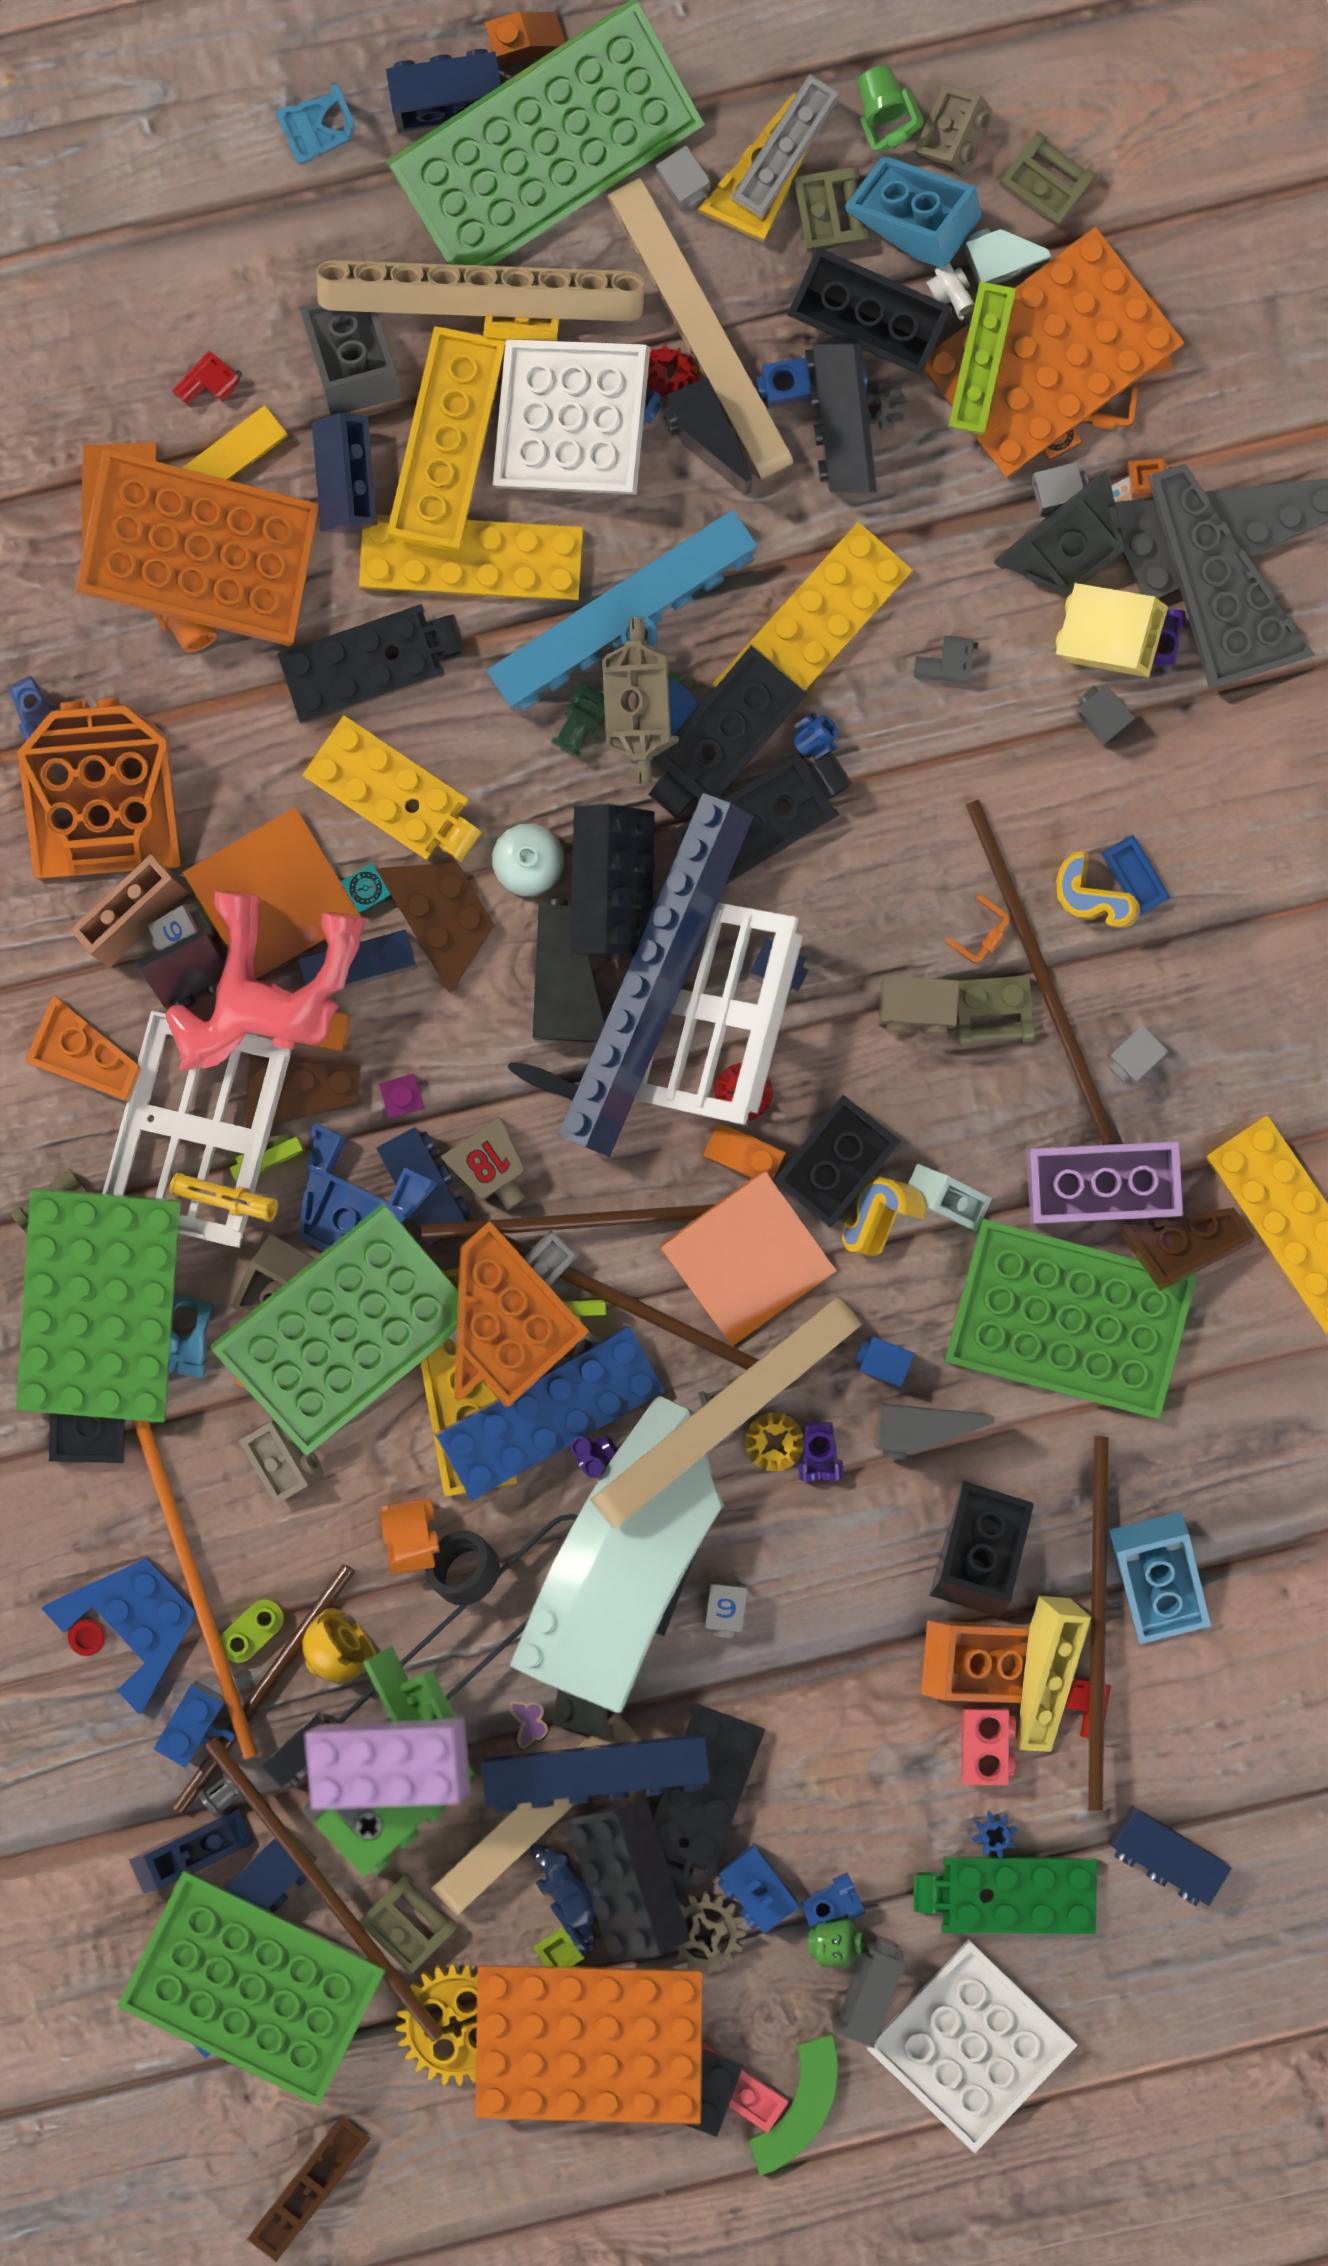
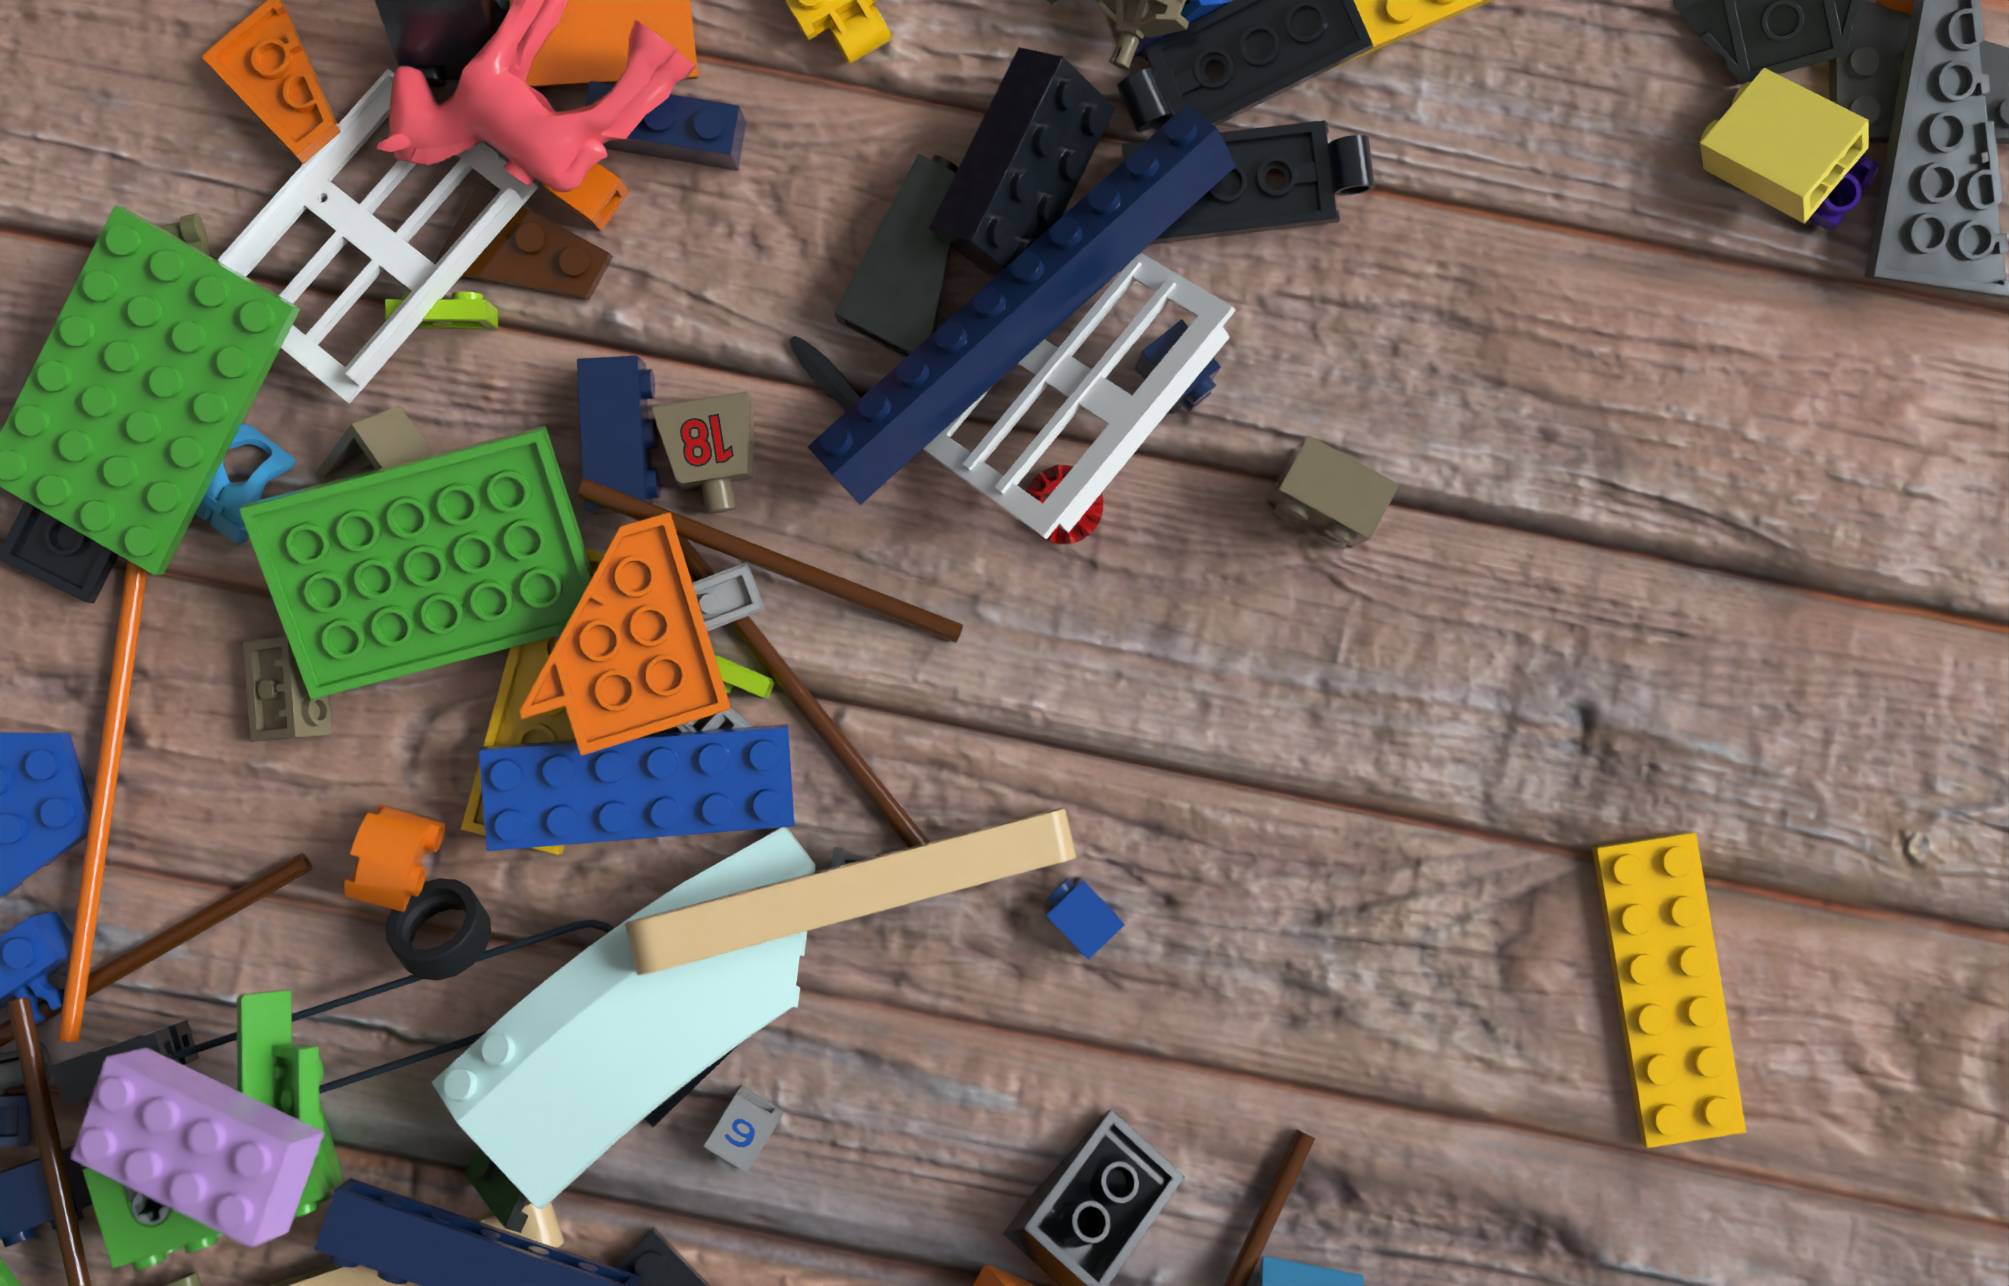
camera: 15 degrees right, 0 degrees up
(252, 1631) = (148, 882): lime plate -> none
(259, 1206) = (385, 357): yellow pin -> none
(335, 1648) = (239, 953): yellow cylinder -> none
(336, 1205) = (502, 404): blue wing -> none
(366, 888) = (719, 43): teal tile -> none
(401, 1096) = (644, 315): magenta plate -> none
(441, 914) = (796, 117): reddish brown wing -> none
(528, 860) = (933, 99): light aqua cylinder -> none
(530, 1717) = (441, 1149): medium lavender sticker -> none
(593, 1456) = (667, 866): dark purple plate -> none
(742, 1152) = (1029, 580): orange slope -> none
(747, 1258) = (972, 709): orange piece -> none
(756, 1442) = (912, 930): yellow gear -> none
(816, 736) = (1356, 108): blue gear -> none
(820, 1461) = (946, 1001): dark purple plate -> none
(836, 1161) = (1138, 641): black brick -> none
(876, 1213) = (1160, 727): yellow animal -> none
(915, 1429) = (1087, 1023): dark grey slope -> none
(950, 1197) = (1253, 749): light aqua slope -> none
(954, 662) = (1563, 103): dark grey piece -> none
(992, 939) = (1455, 460): orange piece -> none
(995, 998) = (1425, 534): olive plate -> none
(1041, 972) = (1496, 528): reddish brown piece -> none
(1068, 1319) = (1337, 971): bright green plate -> none
(1092, 903) = (1604, 471): yellow animal -> none
(1103, 713) = (1722, 246): dark grey brick -> none
(1104, 1182) = (1459, 823): lavender brick -> none
(1135, 874) = (1666, 464): blue tile -> none
(1136, 1055) = (1569, 683): light grey brick -> none
(1185, 1246) = (1522, 948): reddish brown wing -> none

